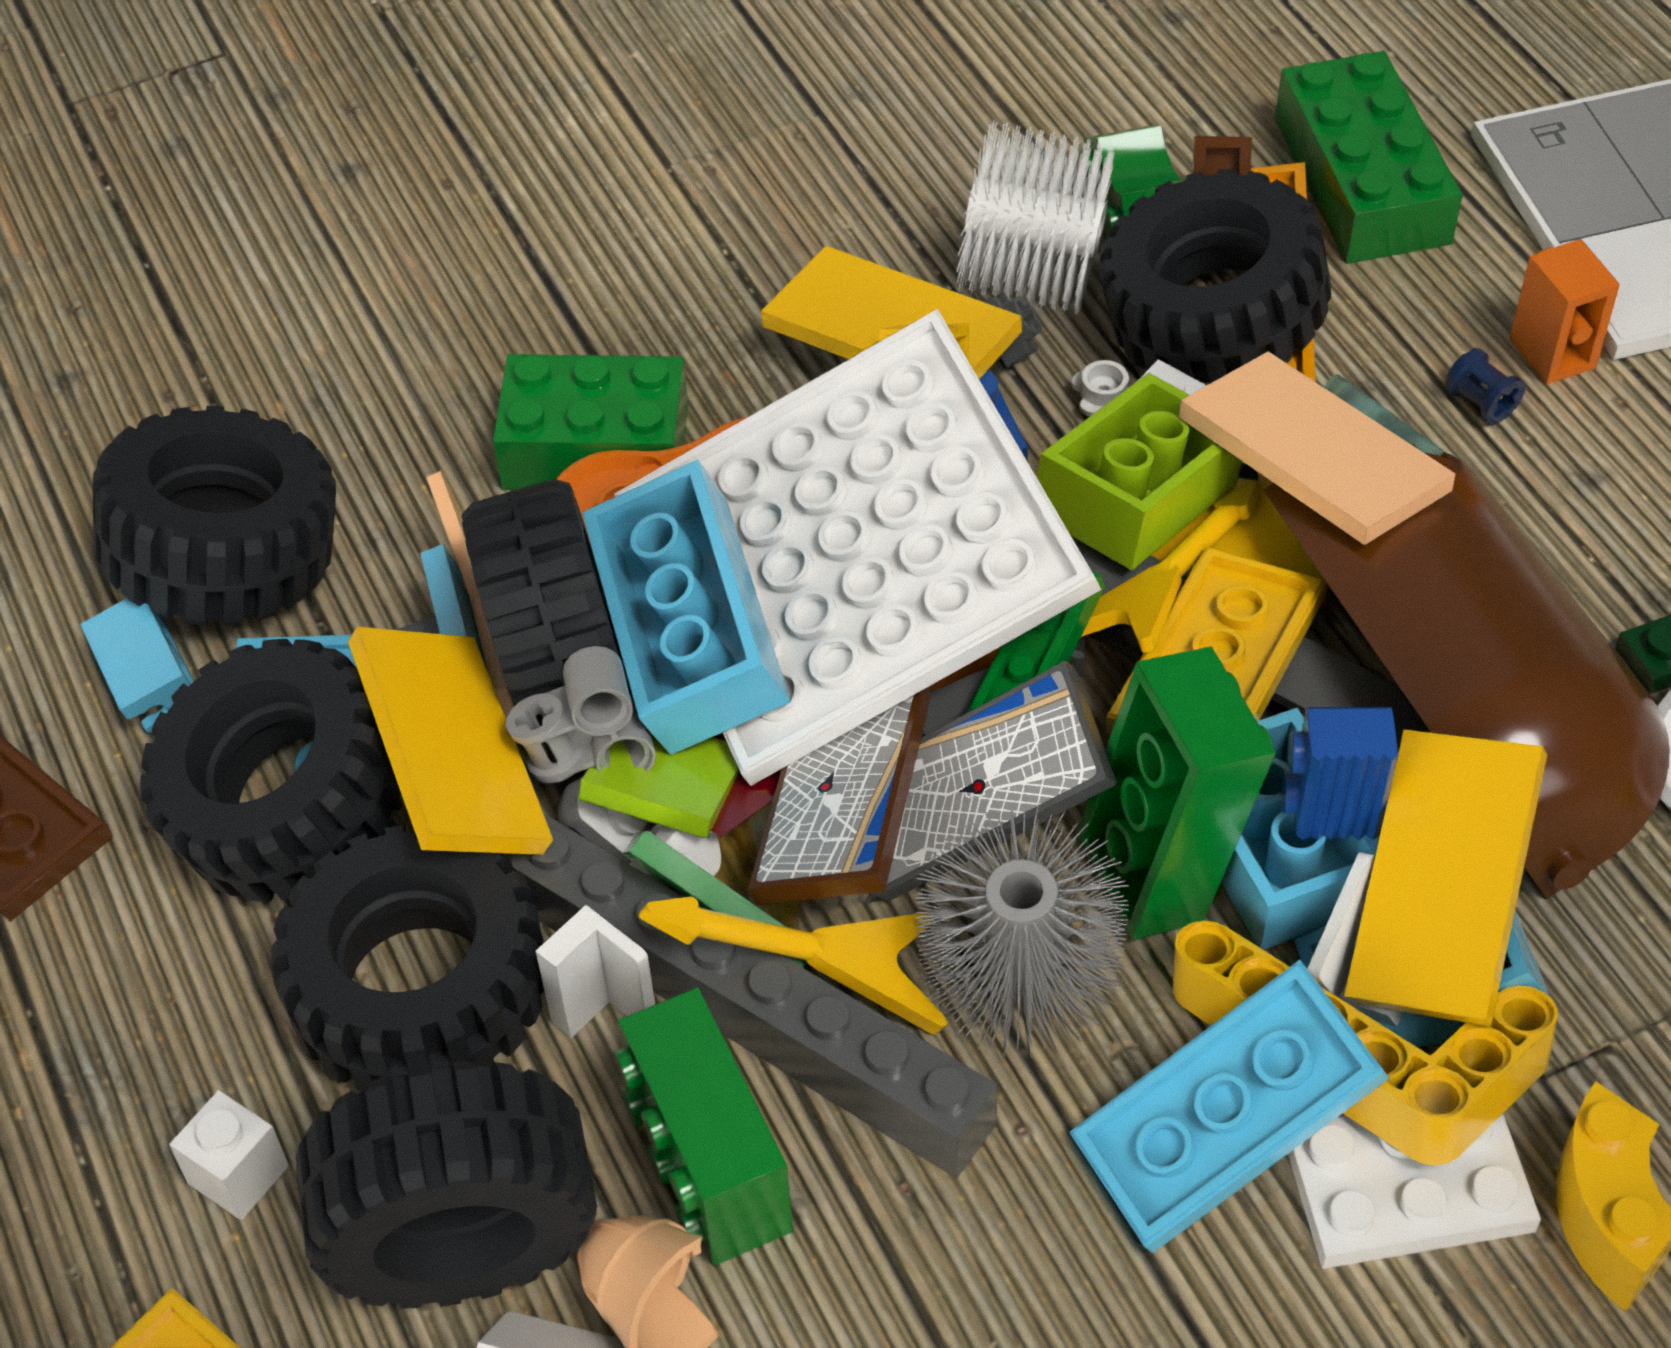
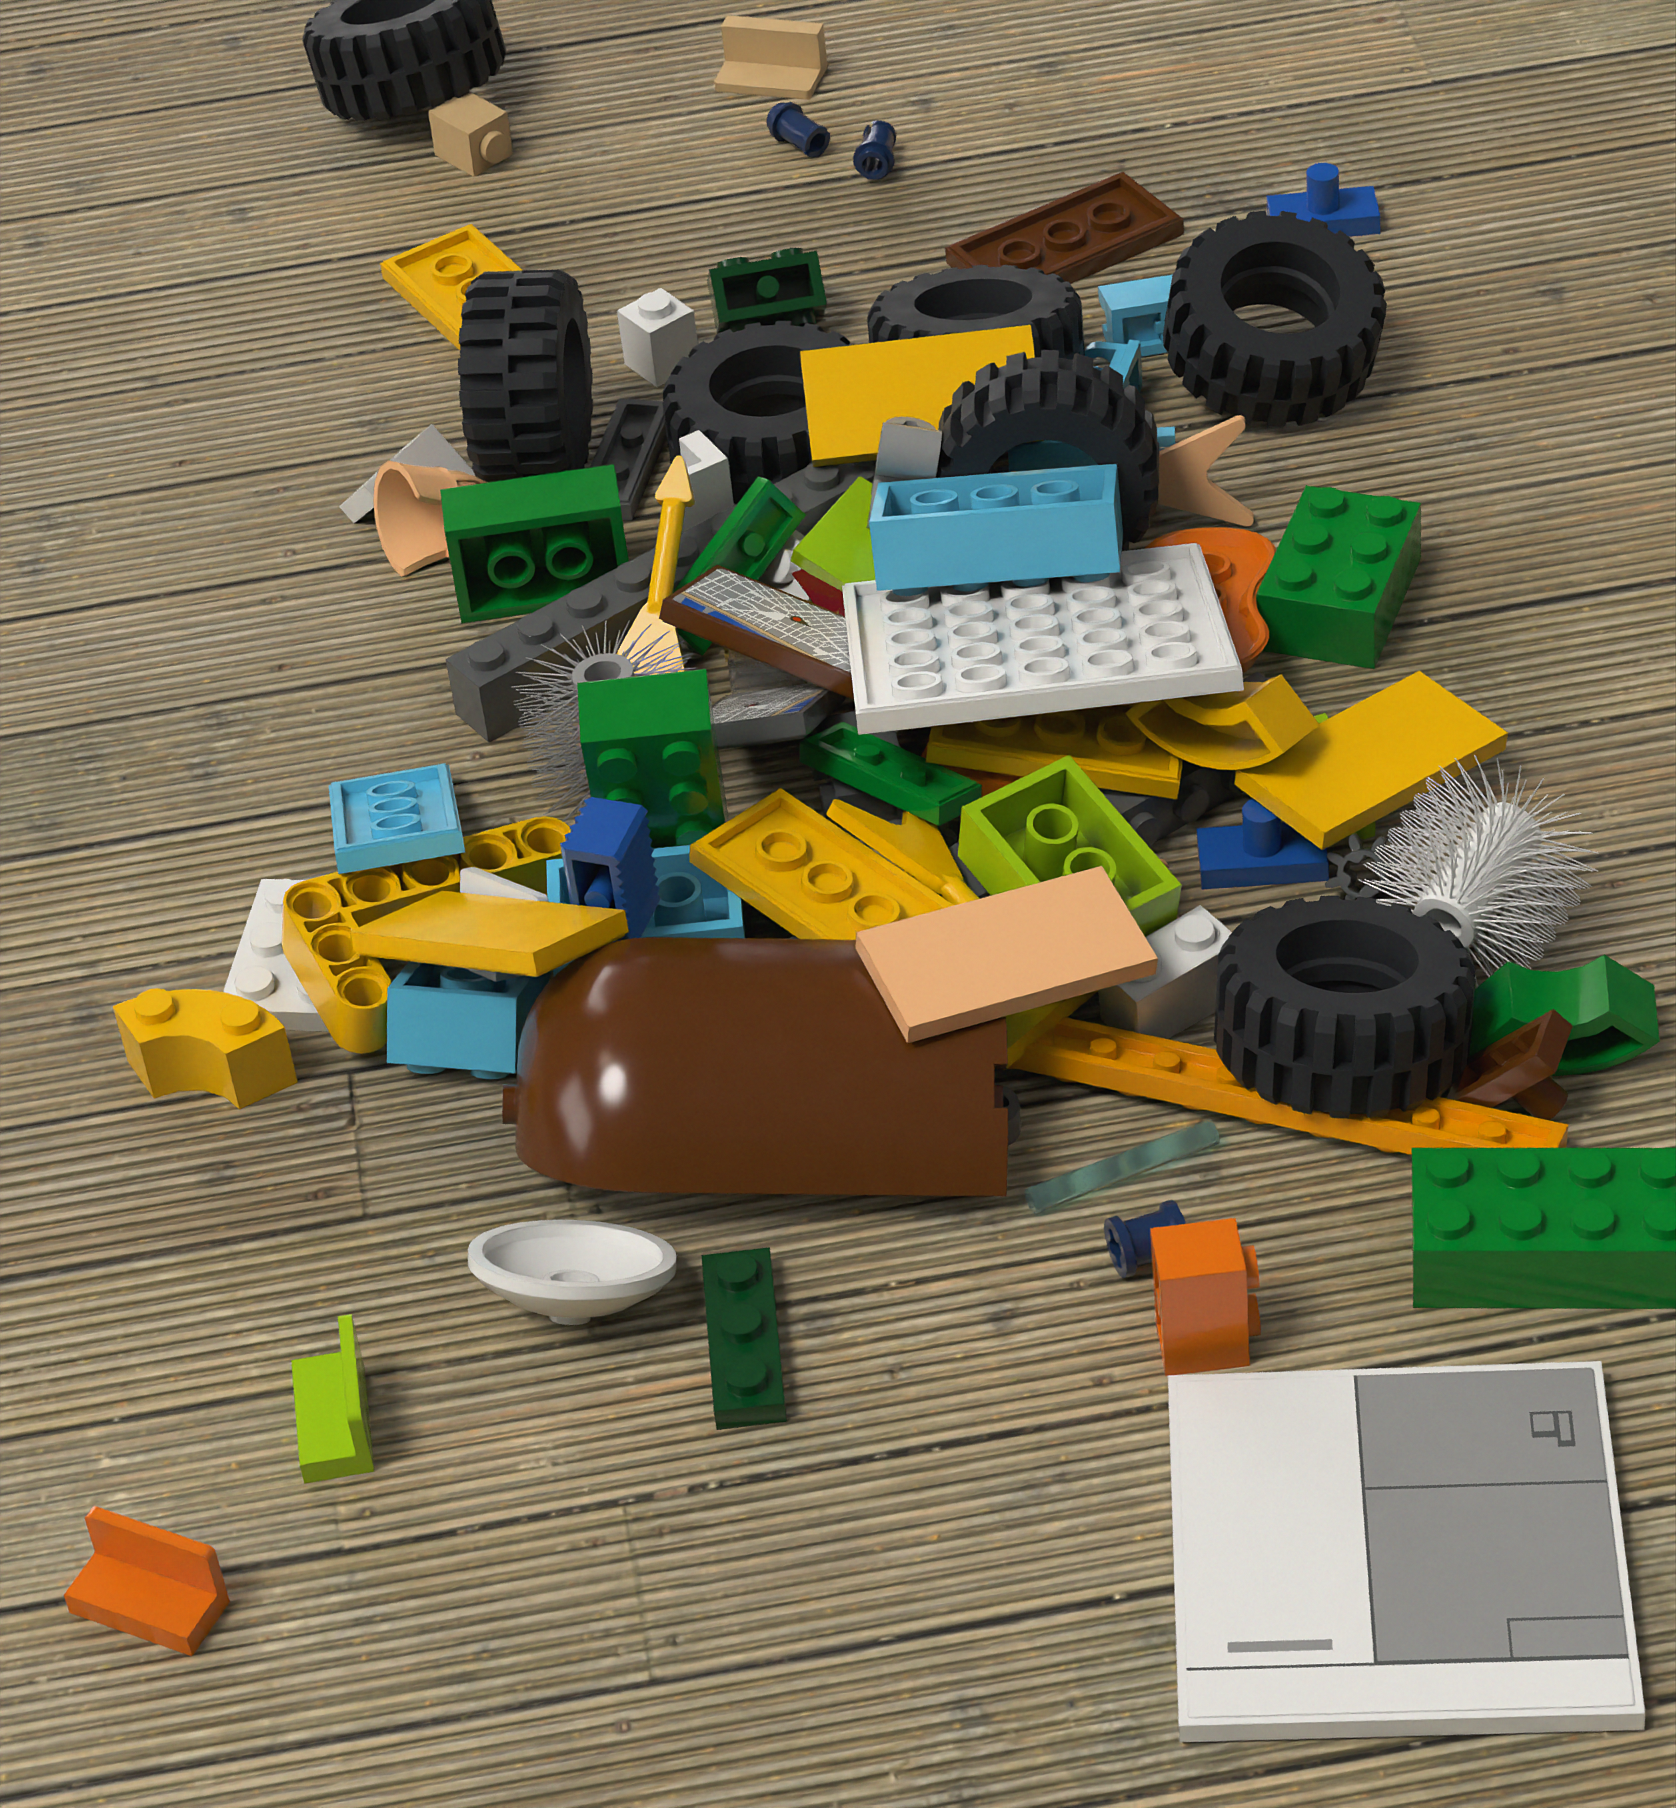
camera: 110 degrees right, 10 degrees down
(140, 1049) = (767, 290): none -> dark green brick

